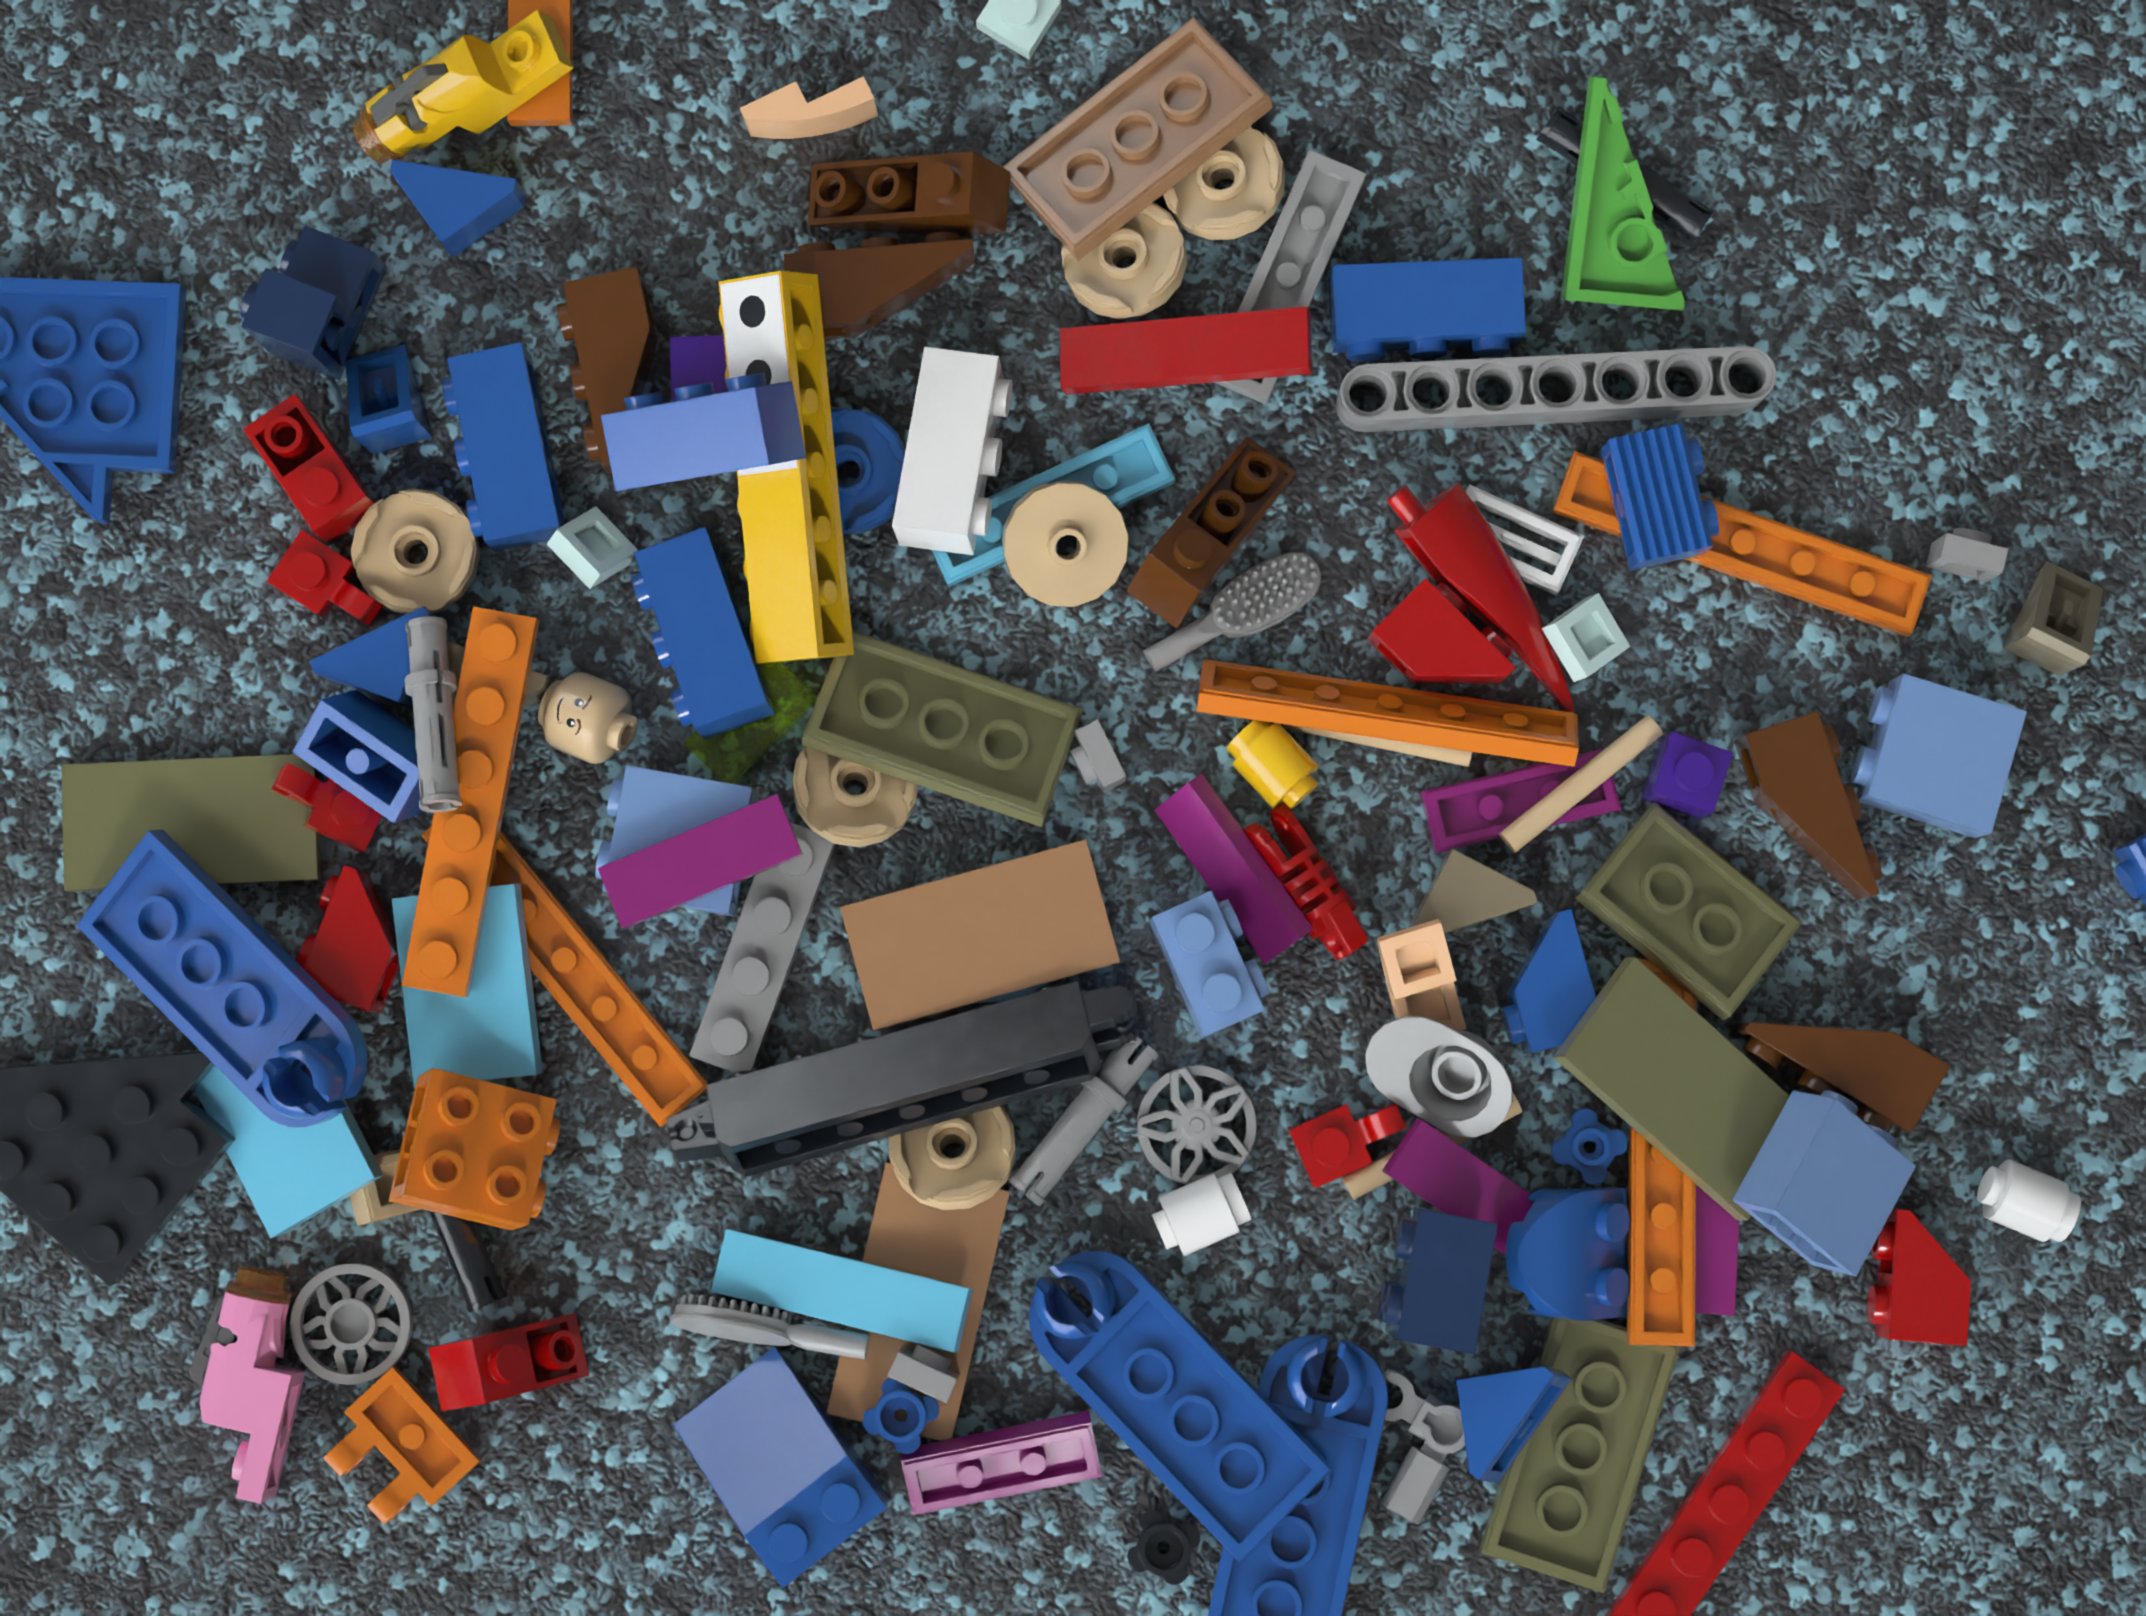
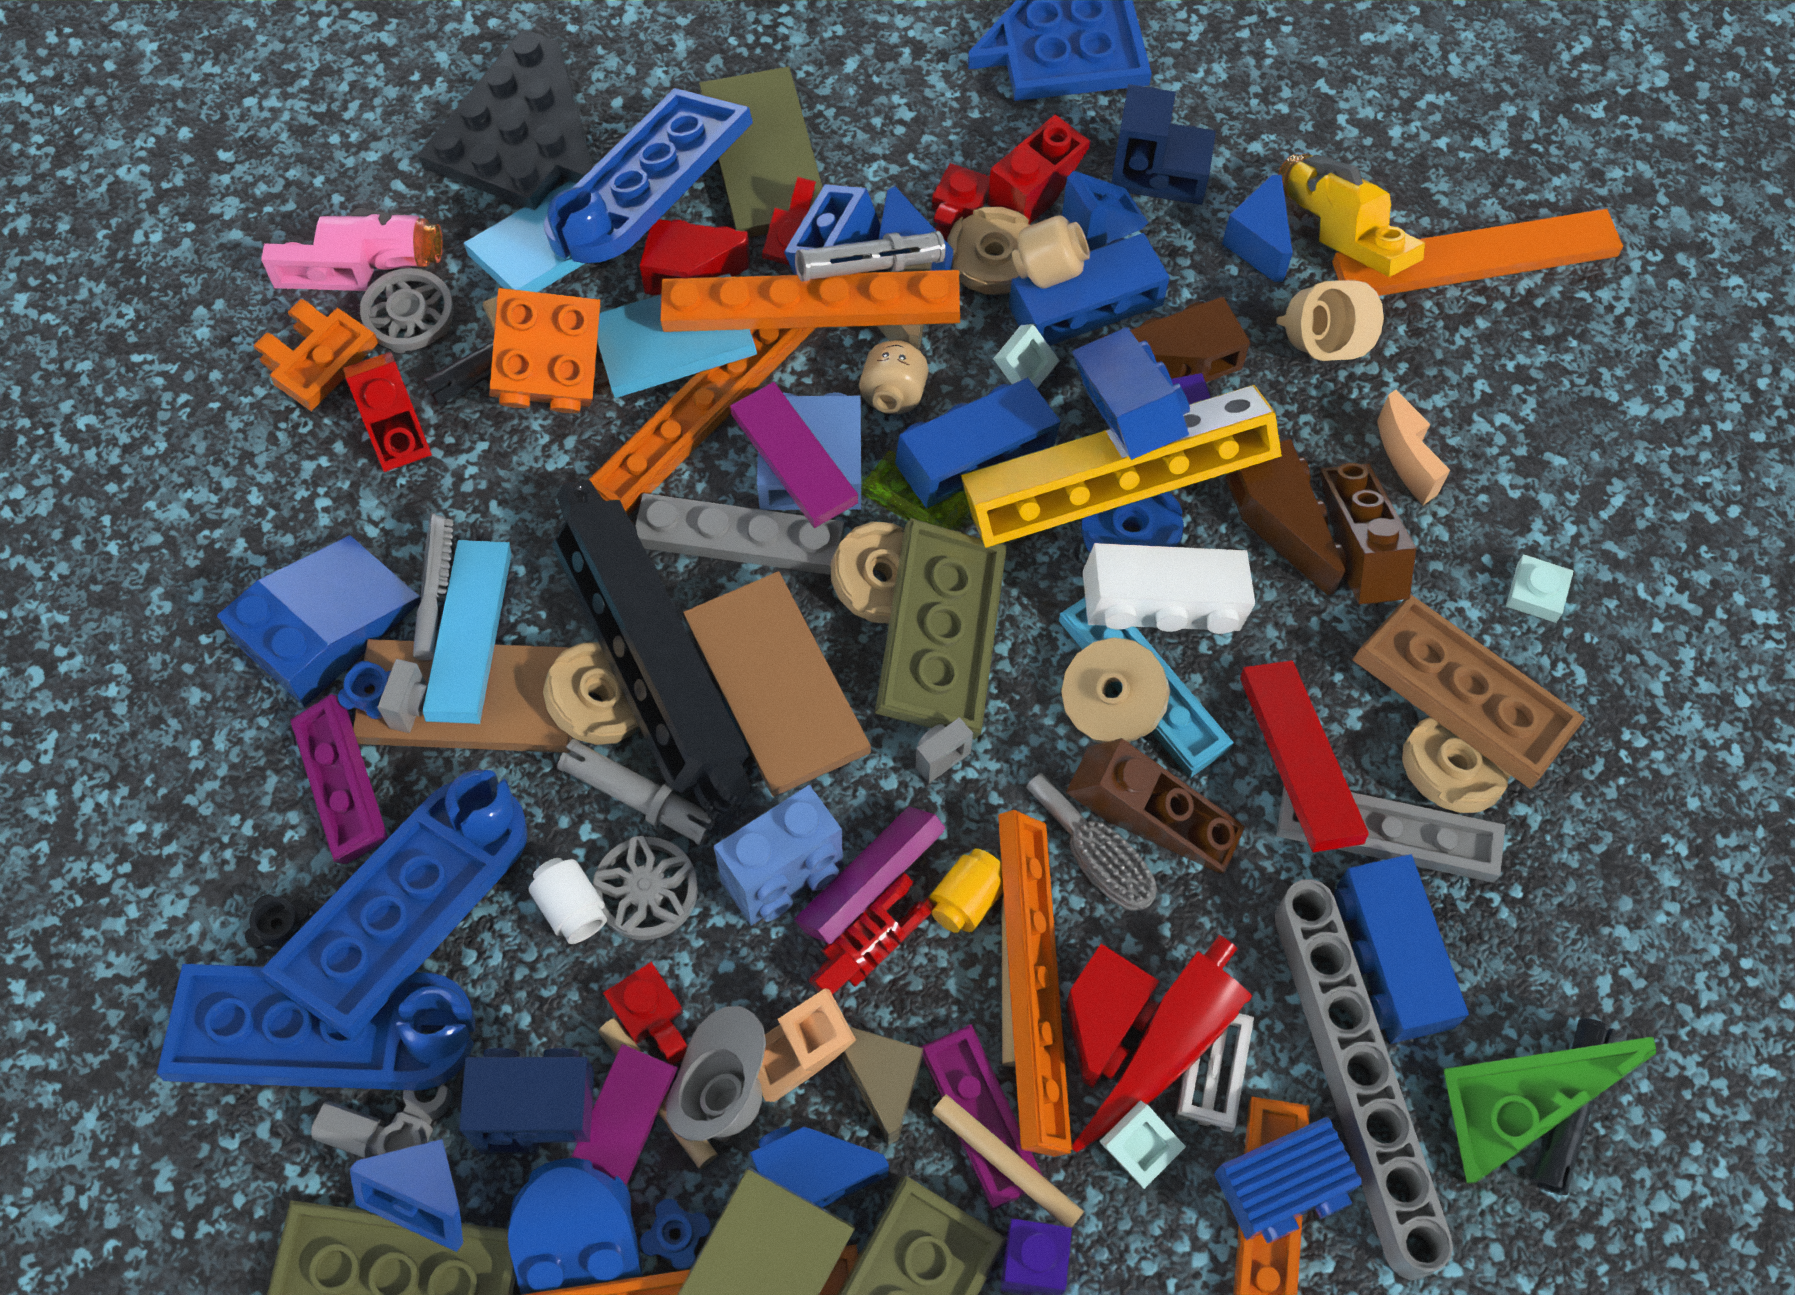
camera: 75 degrees right, 20 degrees down
(472, 484) = (1051, 252): none -> tan head
(614, 153) = (1334, 320): none -> tan piece
(1144, 285) = (1361, 704): tan plate -> none

